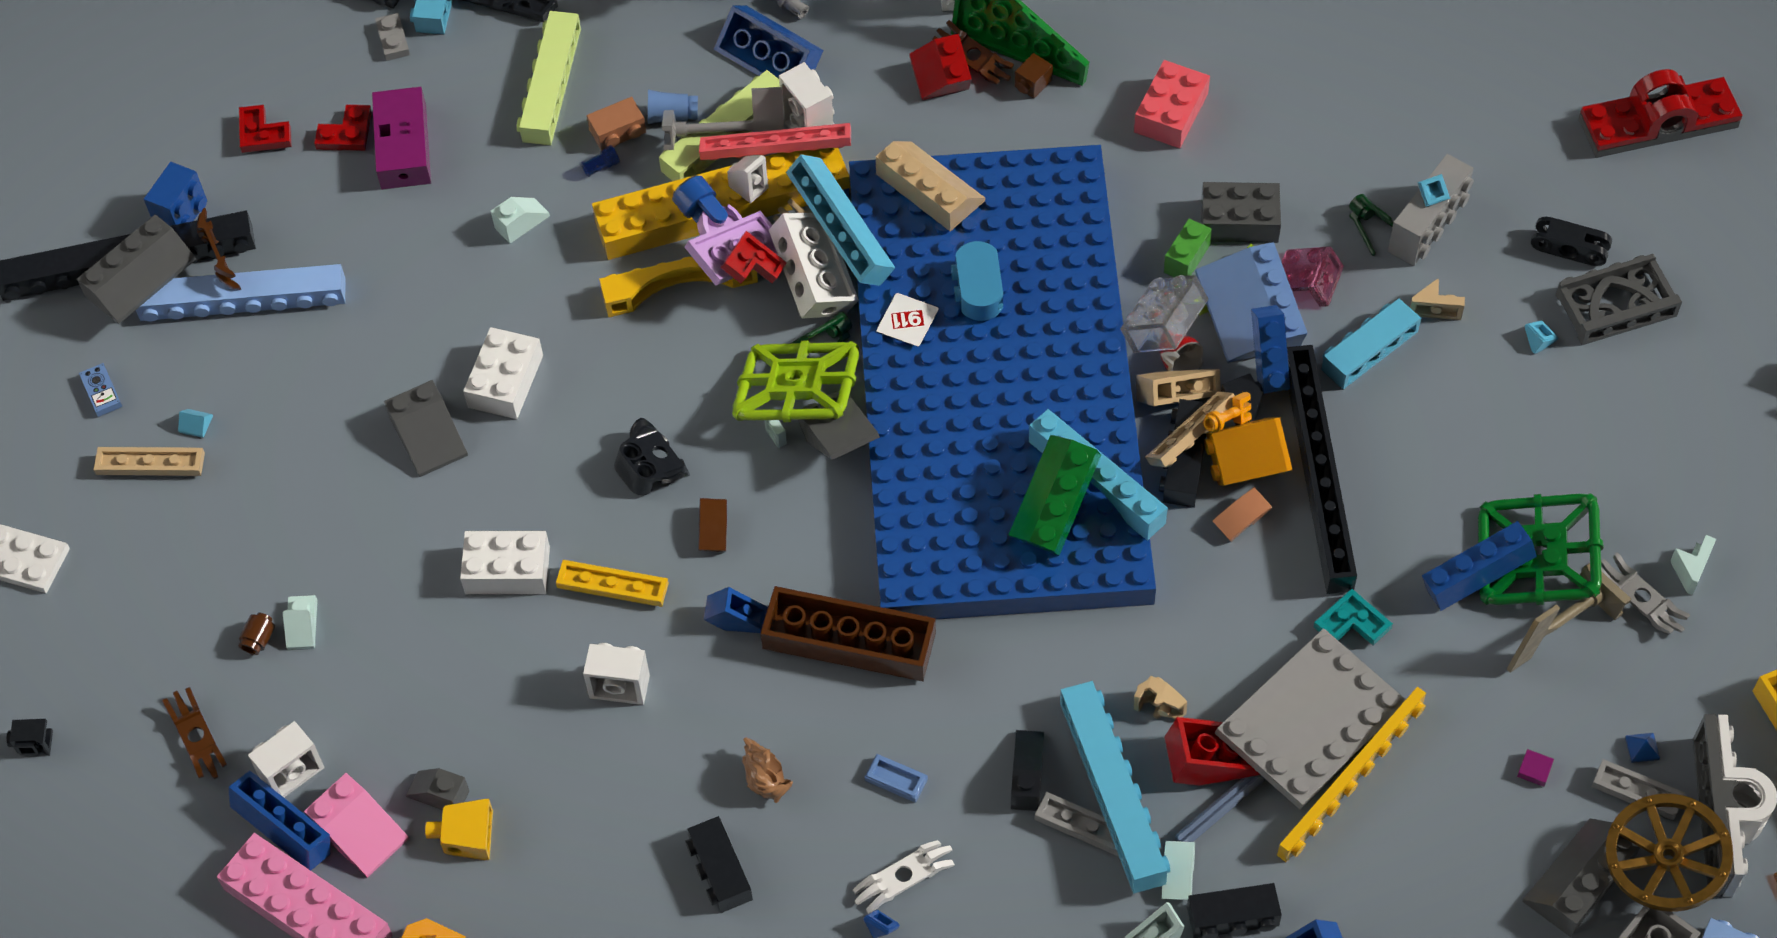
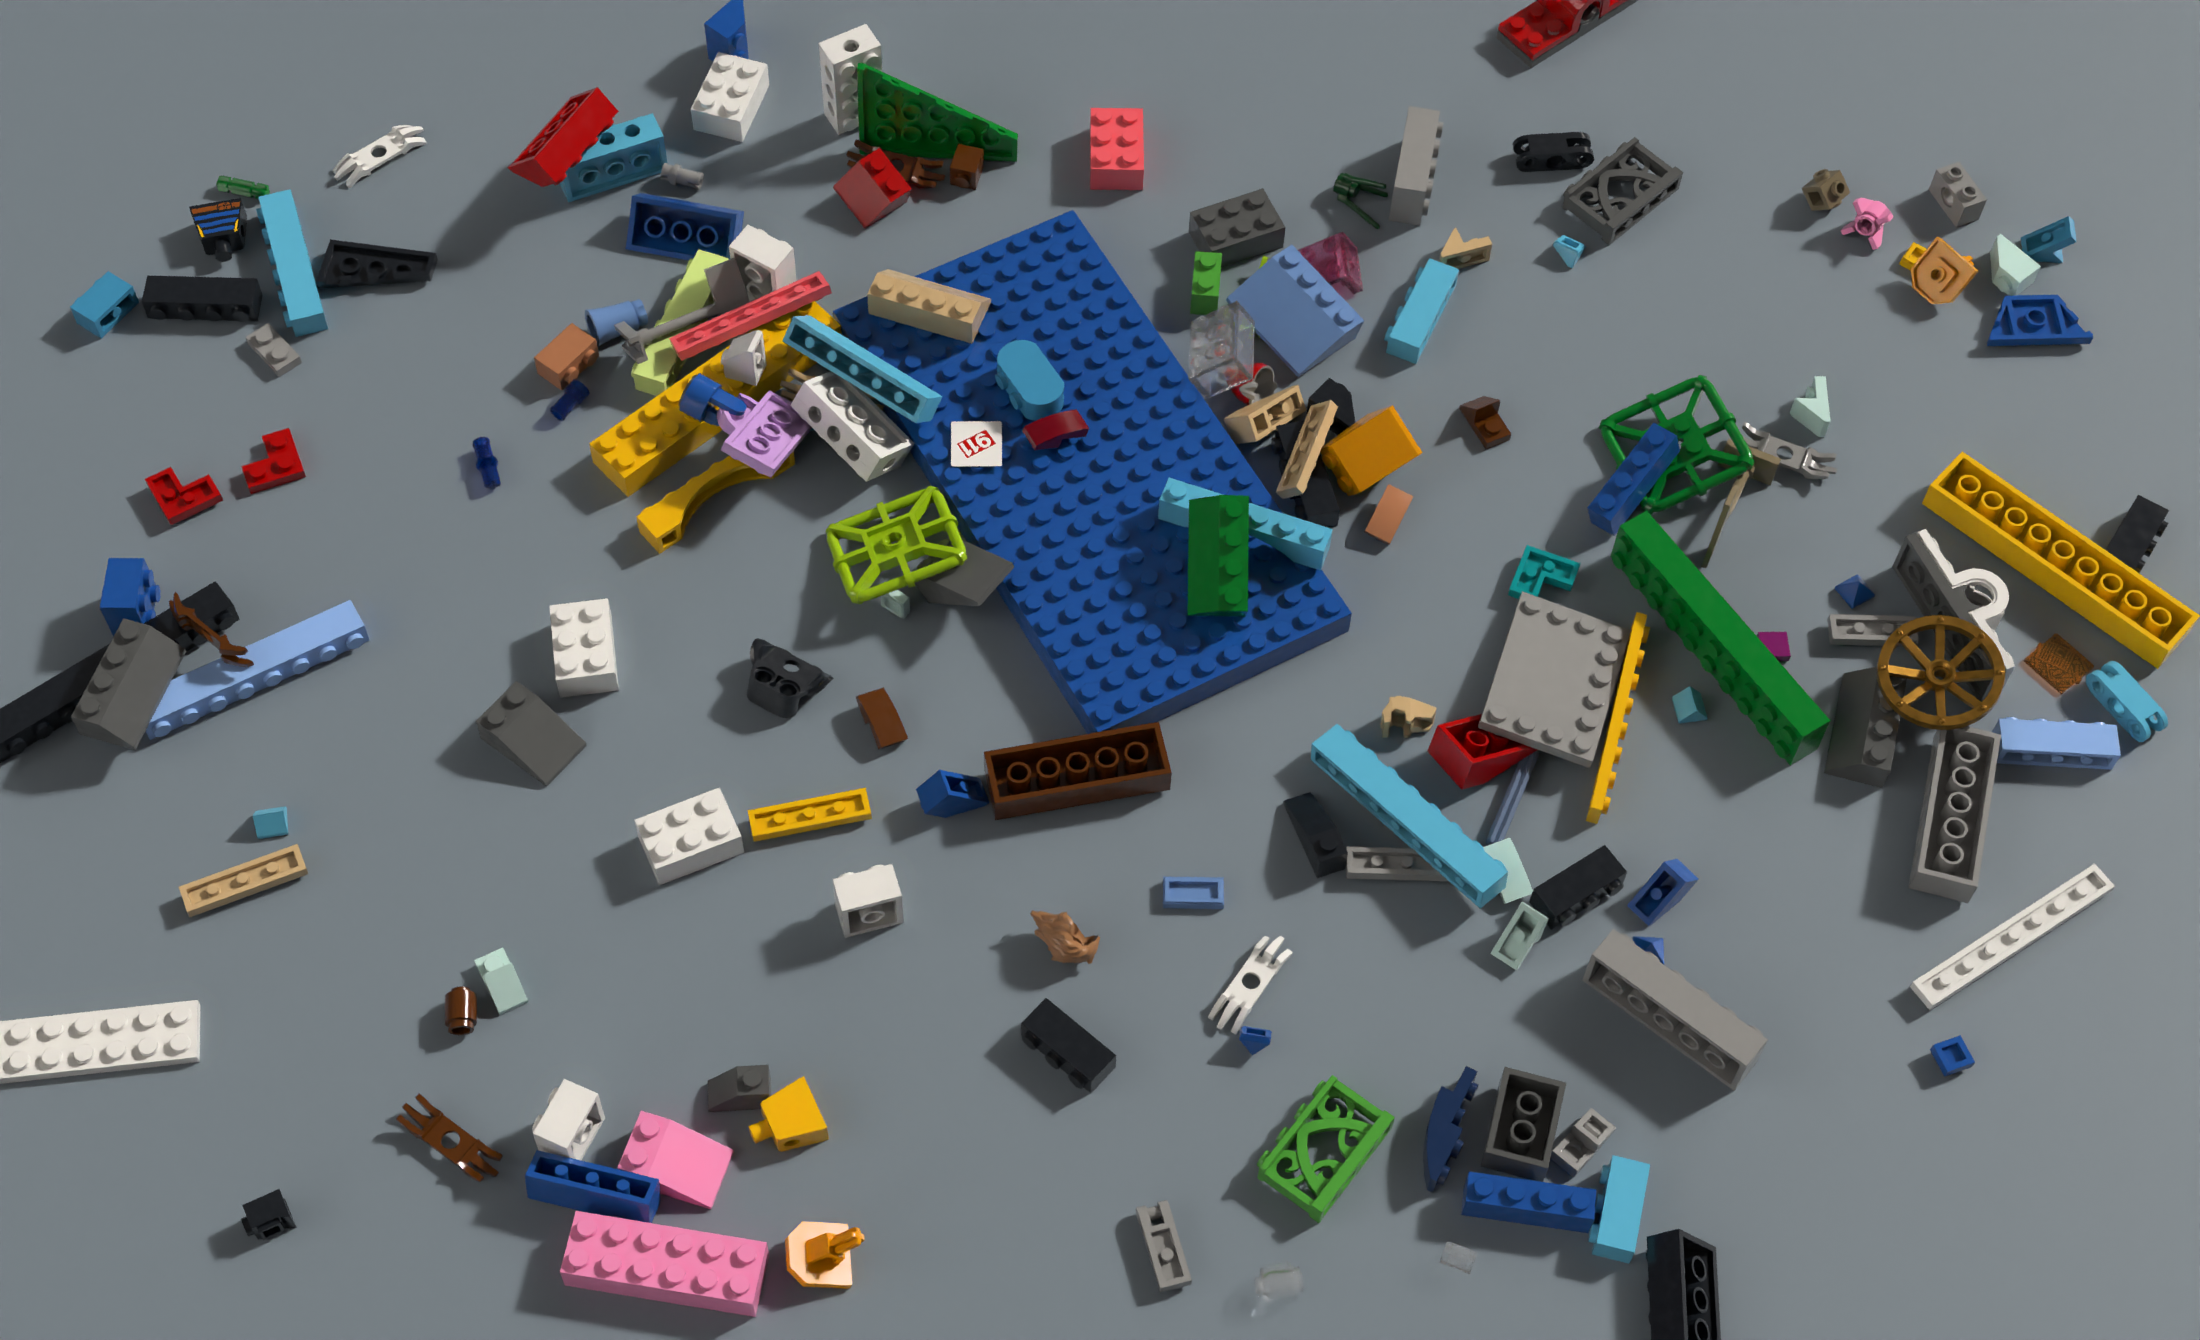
camera: 30 degrees left, 0 degrees up
(100, 389) = (146, 827): medium blue tile -> none
(401, 138) = (343, 449): magenta brick -> none
(509, 185) = (486, 462): none -> clear blue axle
(517, 216) = (512, 487): light aqua slope -> none
(549, 78) = (470, 334): yellowish green brick -> none
(752, 254) = (792, 436): red plate -> none
(835, 327) = (900, 480): dark green plant -> none
(972, 330) = (1050, 430): none -> dark red slope
(1215, 421) = (1331, 431): light orange hinge -> none
(1270, 348) = (1340, 345): blue brick -> none
(1320, 471) = (1441, 445): black brick -> none
(1377, 464) = (1485, 421): none -> reddish brown slope
(1427, 791) = (1689, 706): none -> medium azure slope
(1433, 190) = (1417, 143): medium azure slope -> none
(1481, 741) = (1719, 638): none -> green brick

